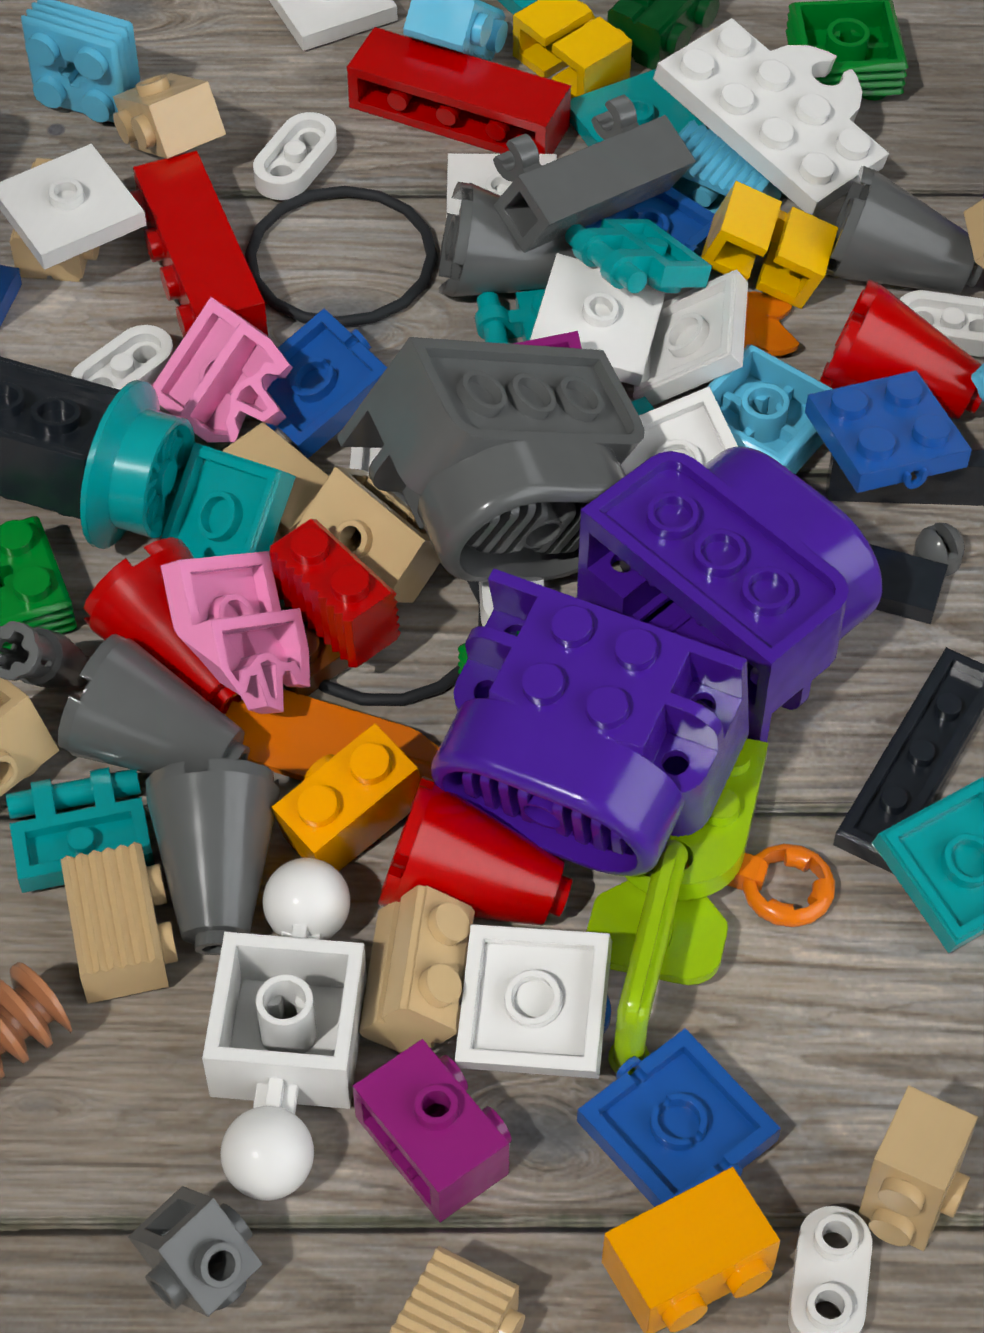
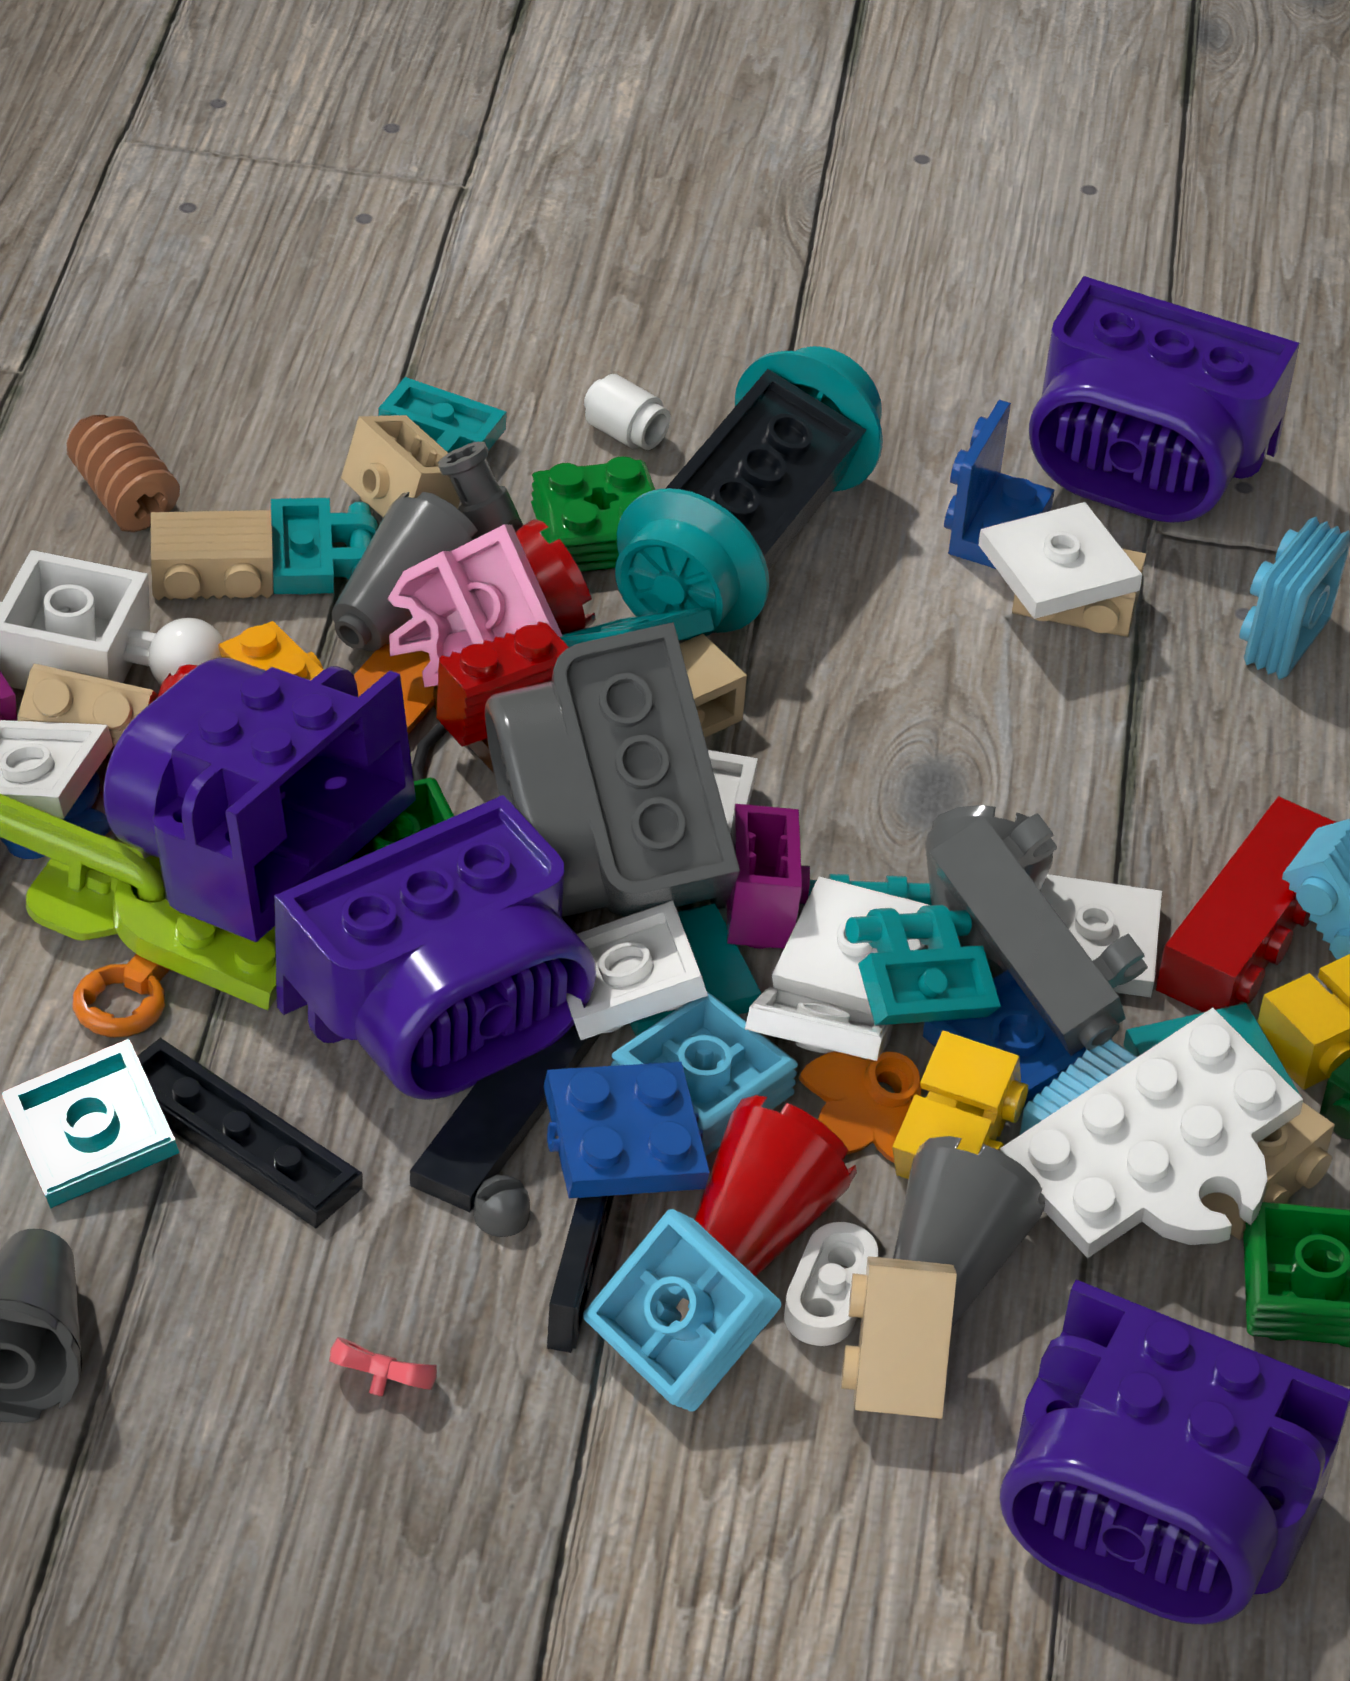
camera: 95 degrees right, 10 degrees down
(123, 357) = (864, 616): white plate -> none
(167, 115) = (1207, 653): tan brick -> none
(194, 241) = (1017, 678): red brick -> none
(213, 843) = (259, 589): dark grey cone -> none
(222, 375) = (806, 660): bright pink plate -> none
(295, 156) = (1167, 769): white plate -> none
(326, 382) = (808, 733): blue plate -> none
(336, 192) = (1046, 736): black piece -> none

